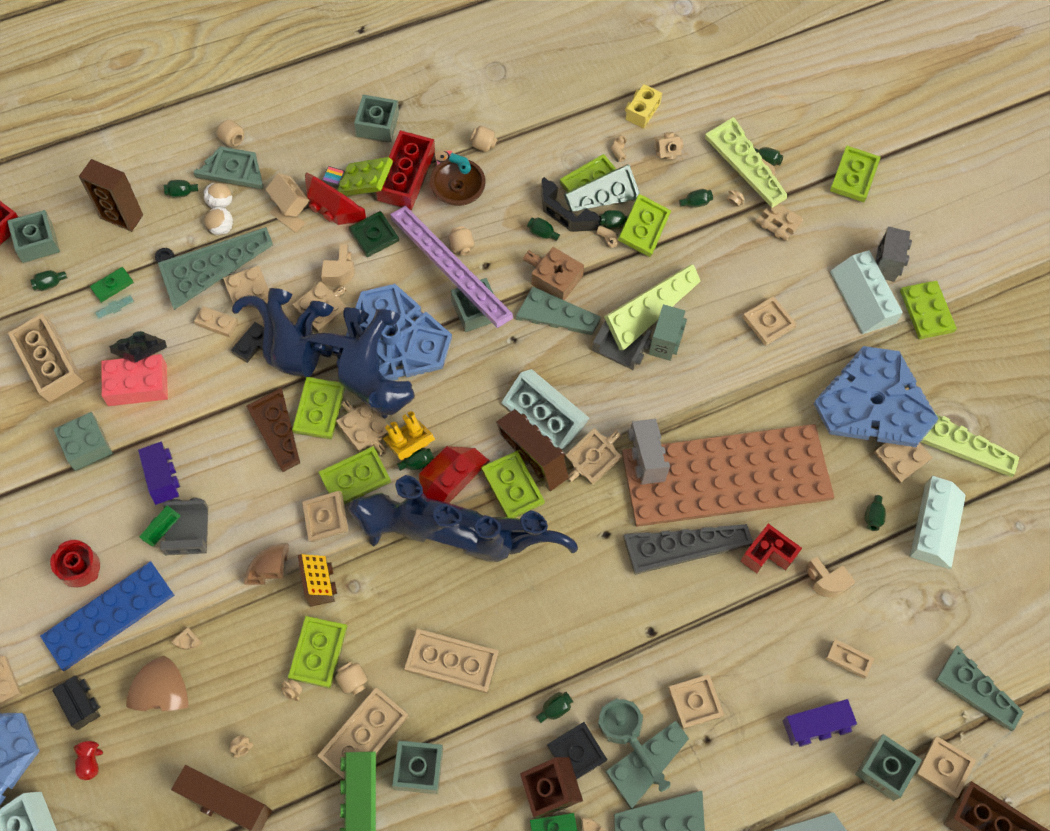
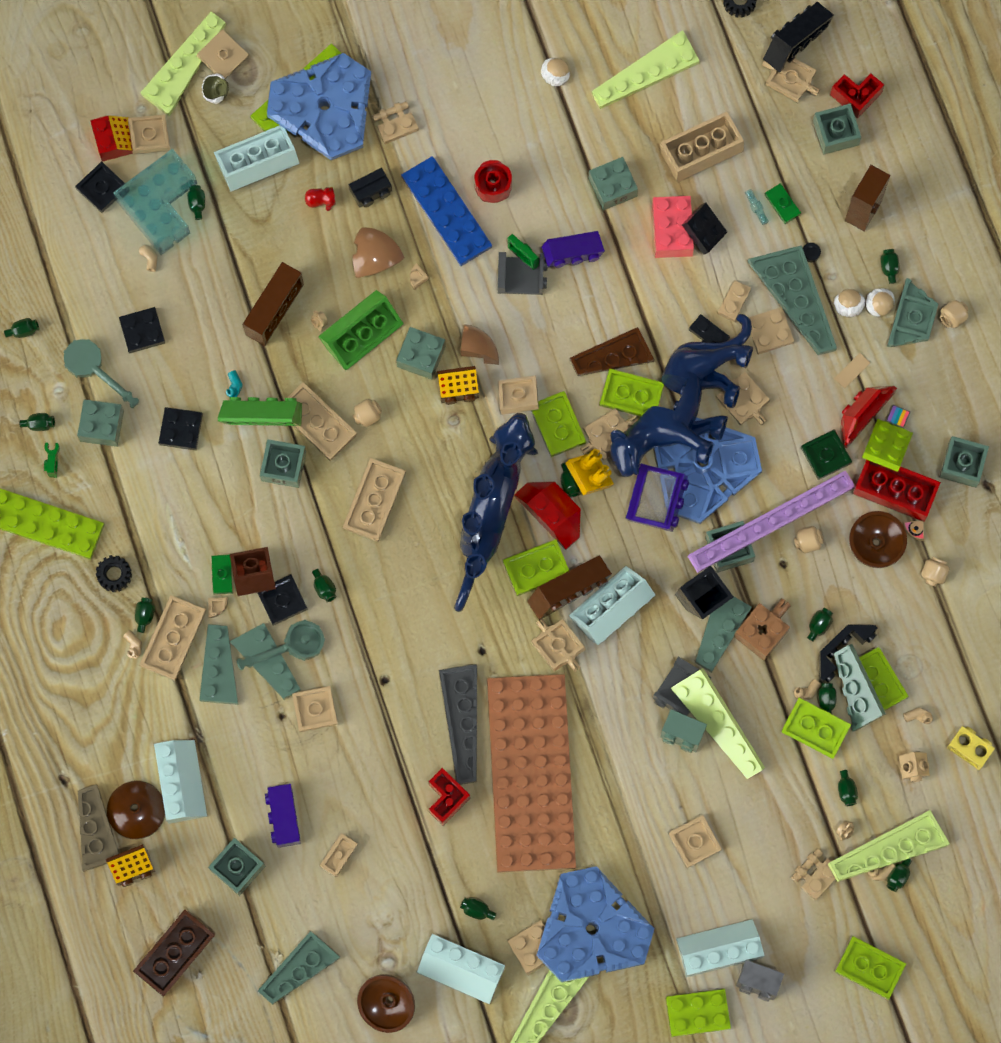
camera: 100 degrees right, 10 degrees up
(47, 280) = (790, 144): dark green plant -> none
(251, 696) = (361, 329): none -> bright green slope
(278, 624) = (421, 353): none -> sand green brick
(287, 195) = (871, 368): tan brick -> none
(291, 690) = (362, 362): tan plate -> none
(317, 652) = (394, 386): lime plate -> none
(338, 272) = (780, 418): tan brick -> none
(432, 370) = (657, 497): none -> window
(463, 162) = (897, 544): teal arm -> none
(531, 319) = (704, 593): none -> black slope
(648, 451) = (554, 693): light grey wedge -> none
(828, 583) = (410, 849): tan brick -> none
(945, 767) = (232, 922): tan plate -> none
(996, 590) = (381, 1012): none -> reddish brown dish

